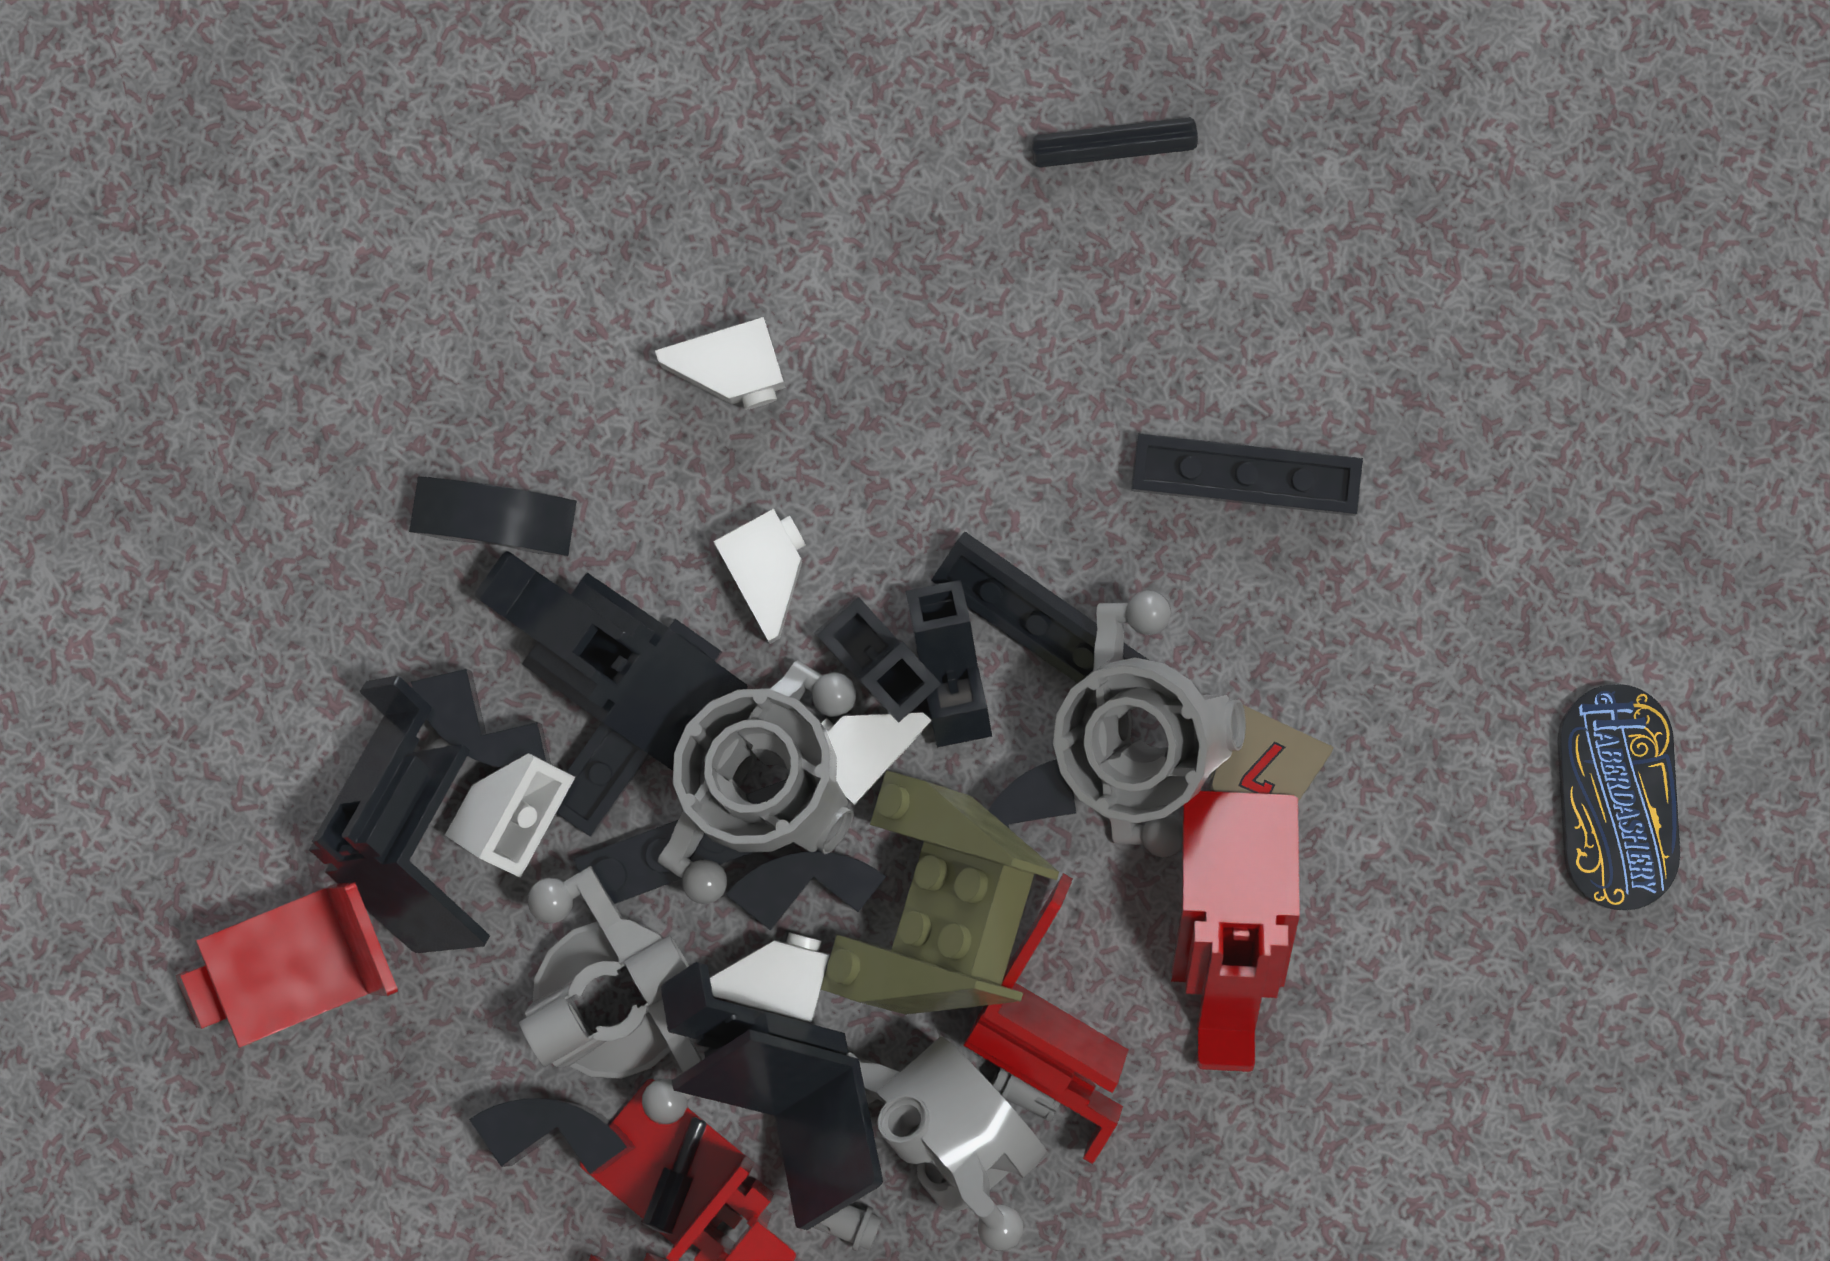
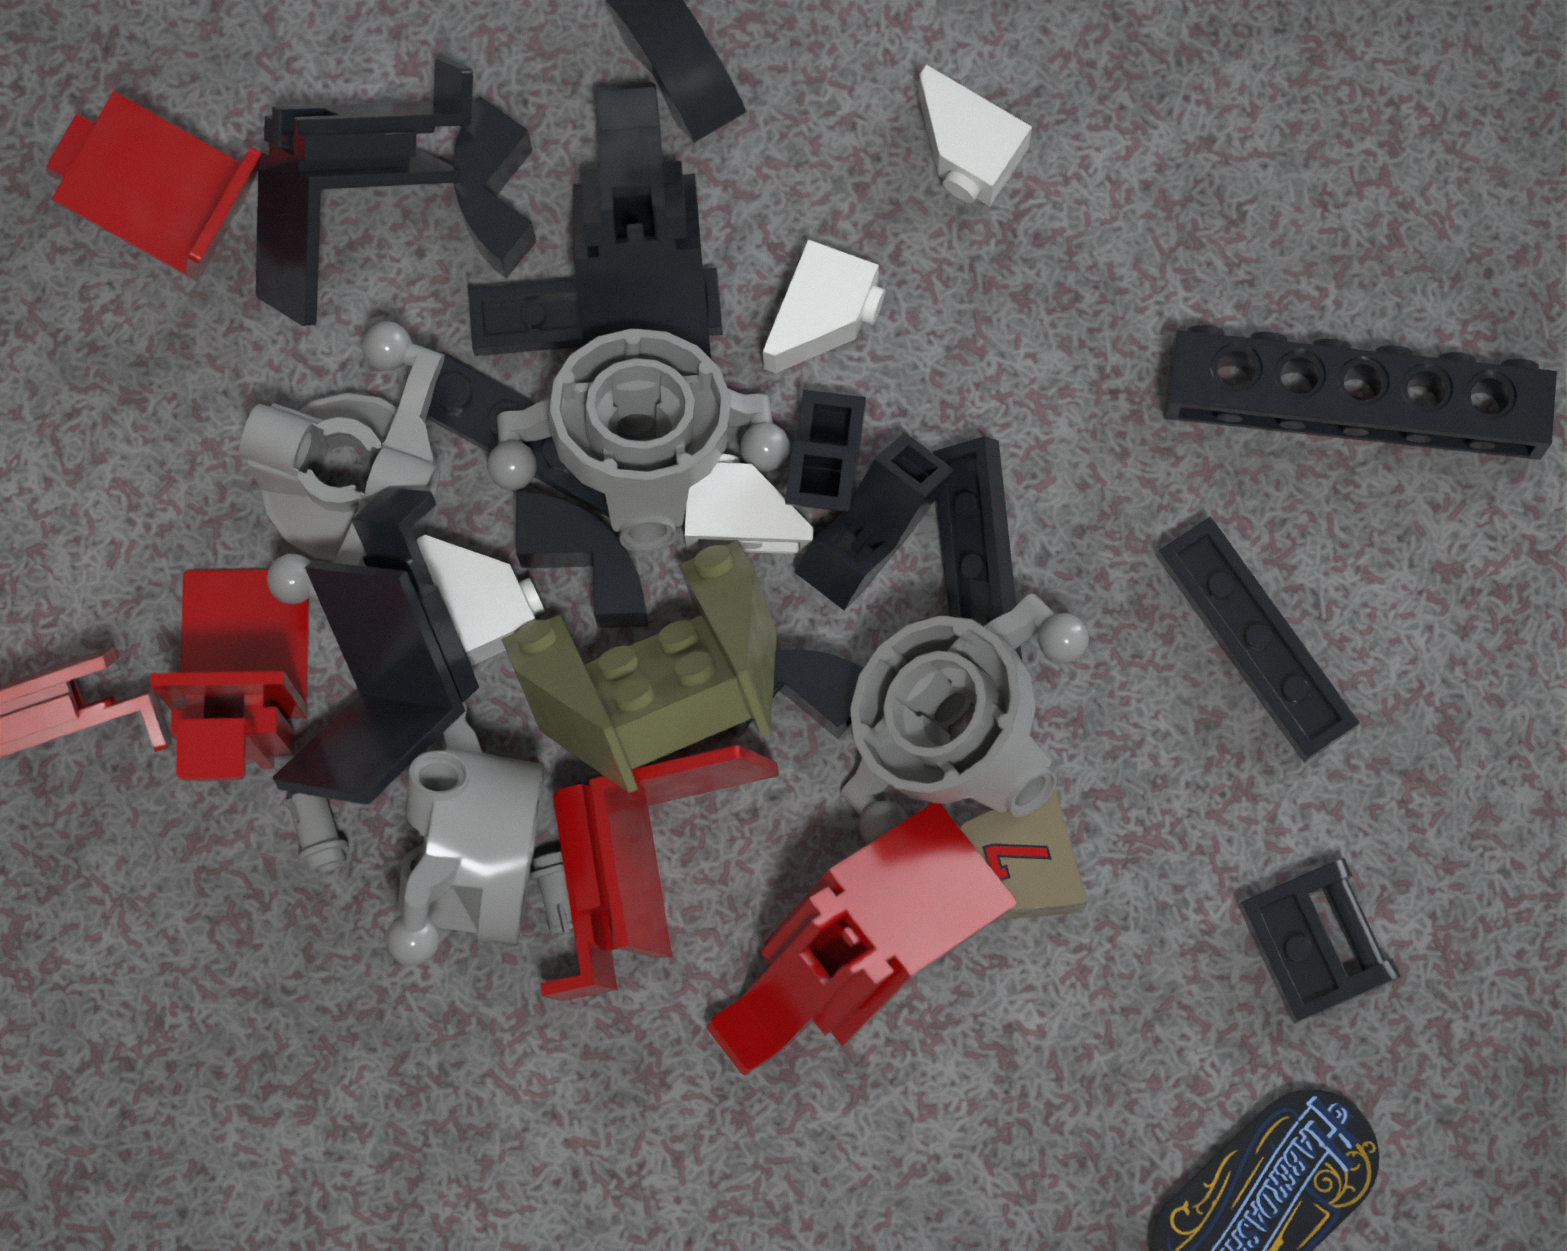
camera: 55 degrees right, 10 degrees down
(510, 812) = (438, 264): white slope -> none
(523, 1125) = (180, 495): black brick -> none
(674, 1182) = (234, 657): black axle -> none
(1114, 142) = (1437, 298): black axle -> none
(1252, 169) = (1391, 417): none -> black brick
(1475, 629) = (1300, 949): none -> black plate

